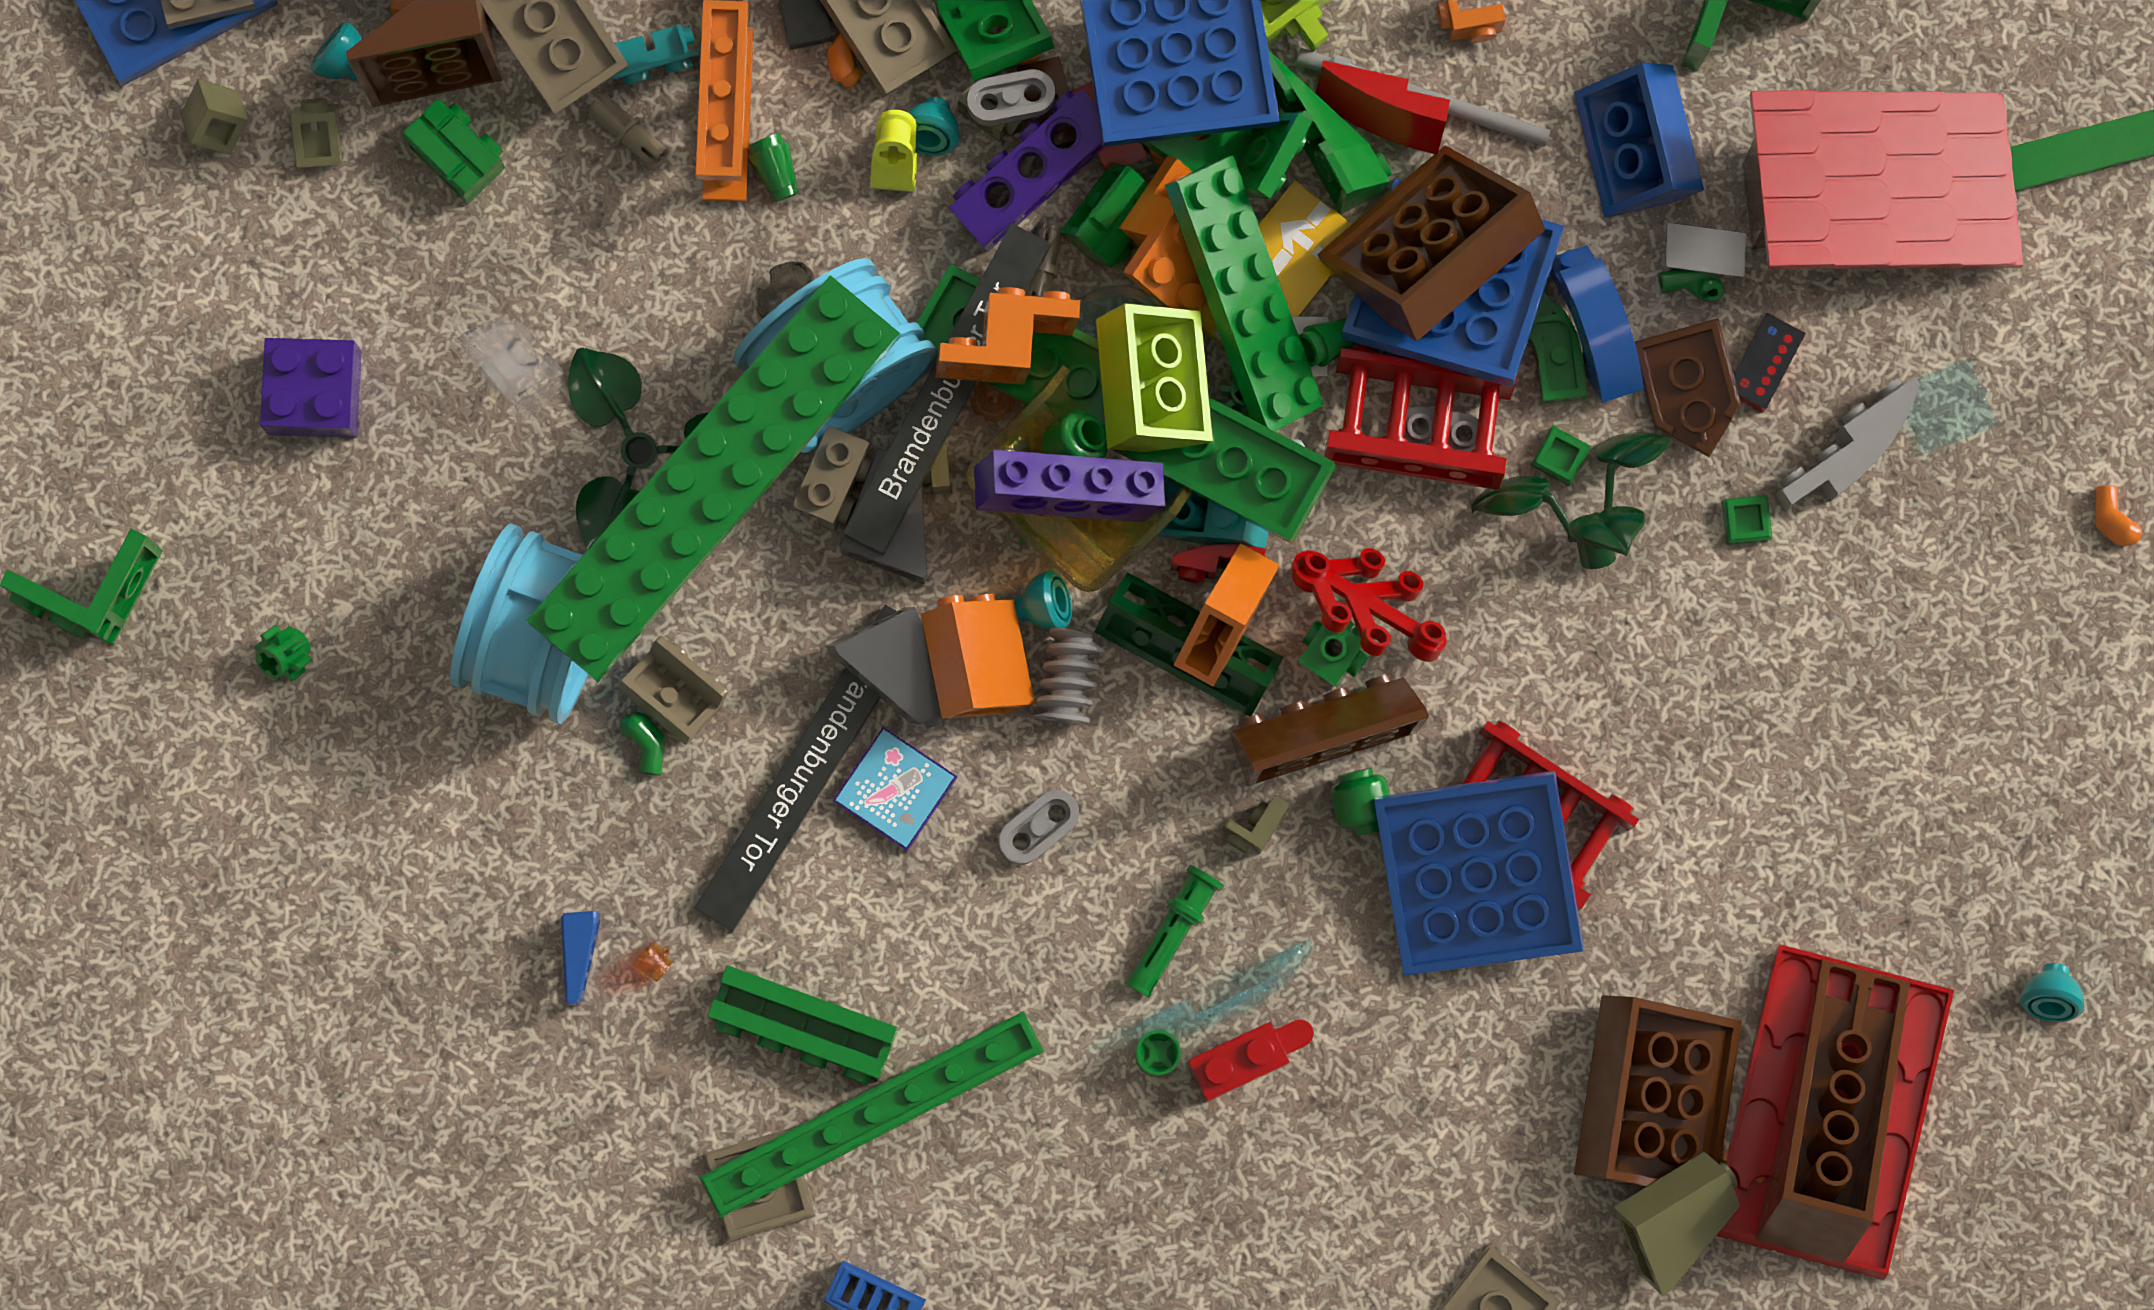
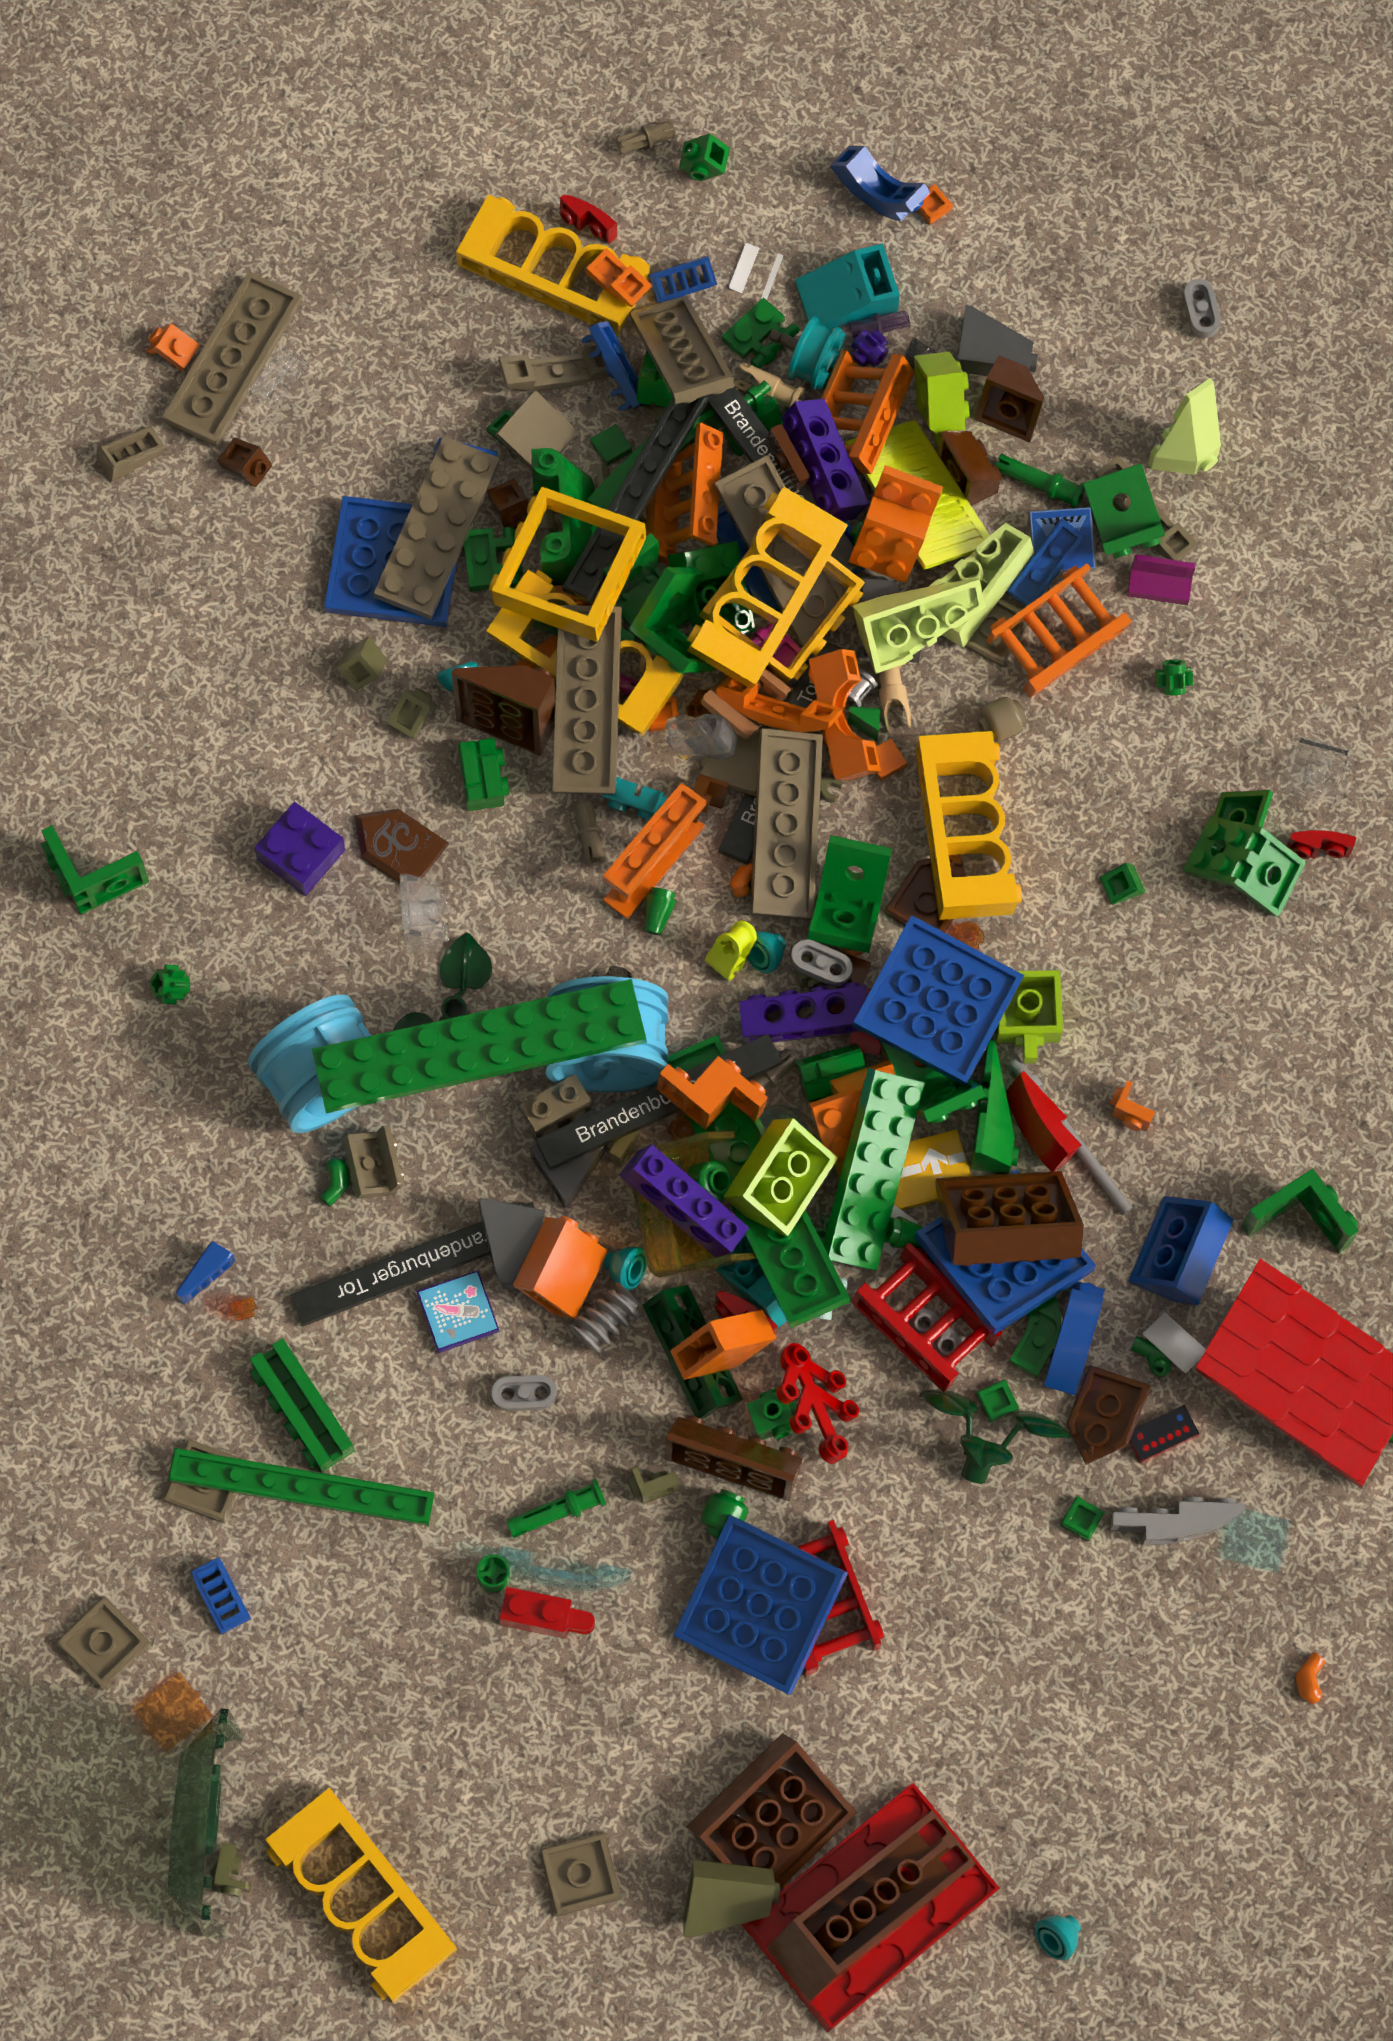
camera: 40 degrees right, 10 degrees down
(417, 301) = (398, 843): none -> reddish brown tile

